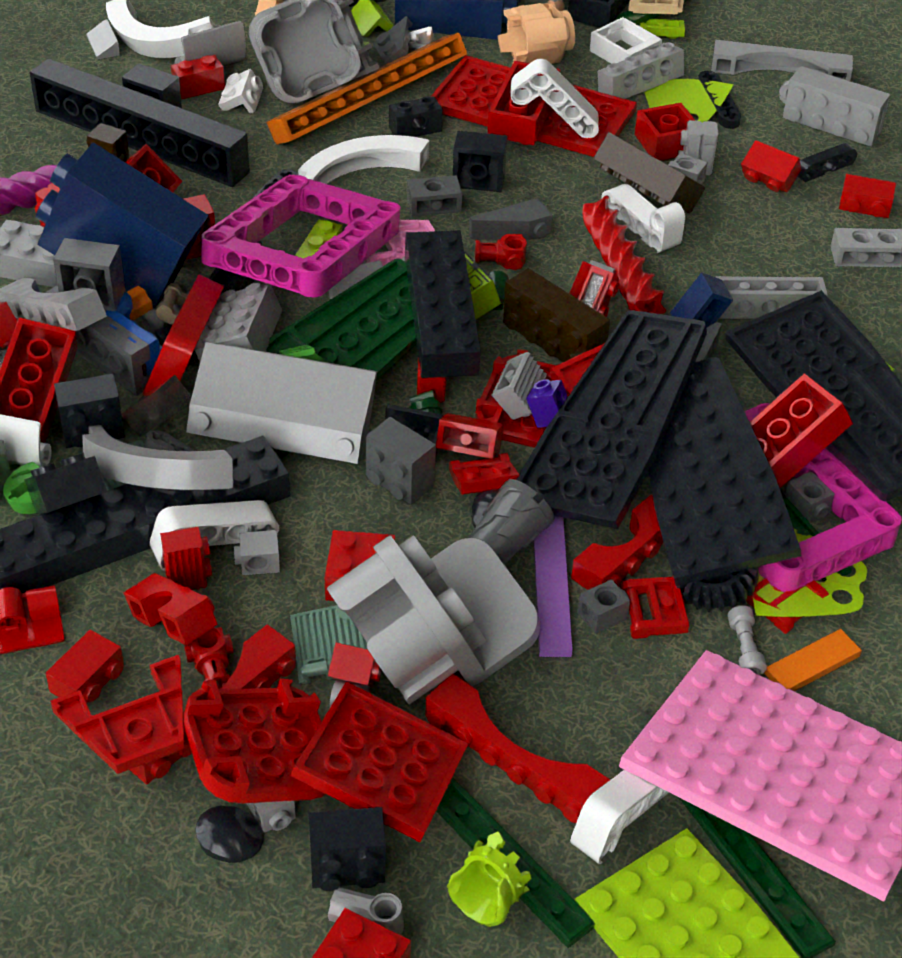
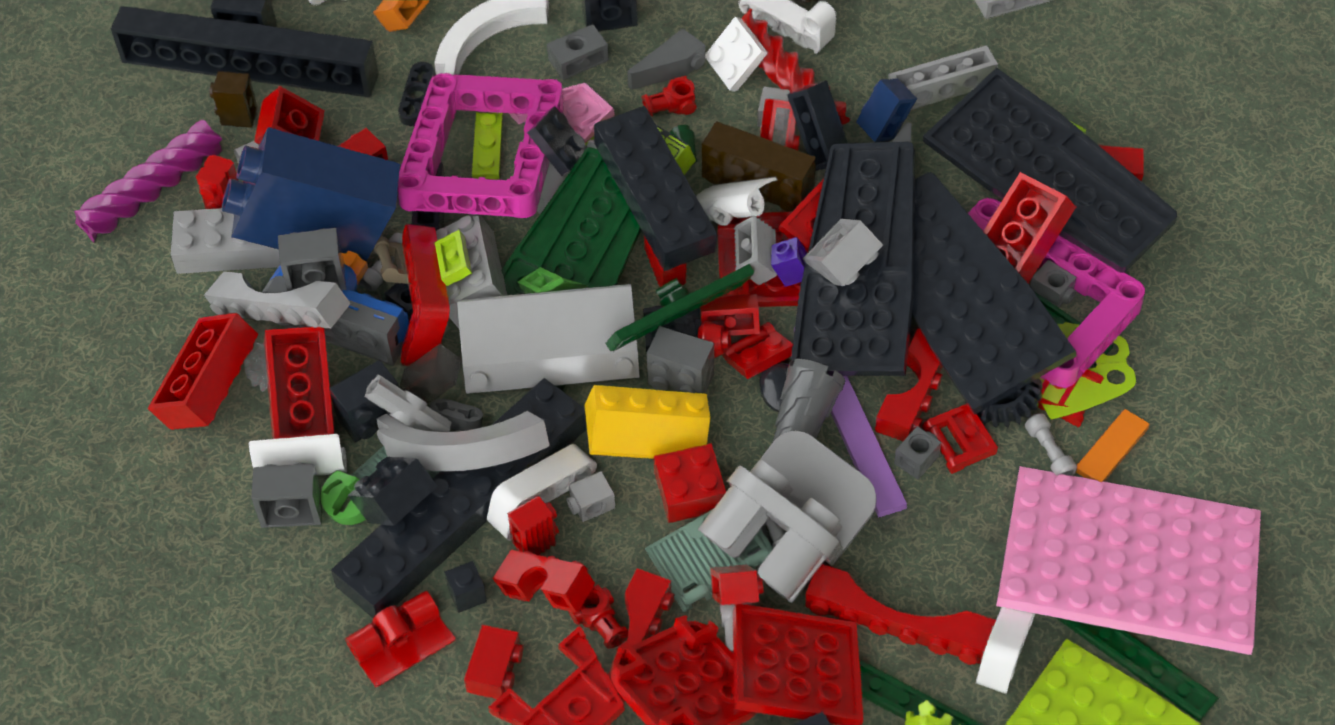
camera: 15 degrees left, 10 degrees up
(95, 594) = (465, 586): none -> black brick
(114, 416) = (405, 406): none -> light grey piece
(222, 308) = (453, 258): none -> lime plate
(339, 496) = (644, 421): none -> yellow slope
(369, 242) = (557, 140): none -> black plate
(417, 407) = (679, 308): none -> dark green tile
(447, 447) = (715, 333): none -> red cone
(515, 340) = (733, 200): none -> white panel
(578, 230) = (735, 54): none -> white plate
(600, 400) = (844, 252): none -> light grey slope
(626, 287) = (817, 120): none -> black brick

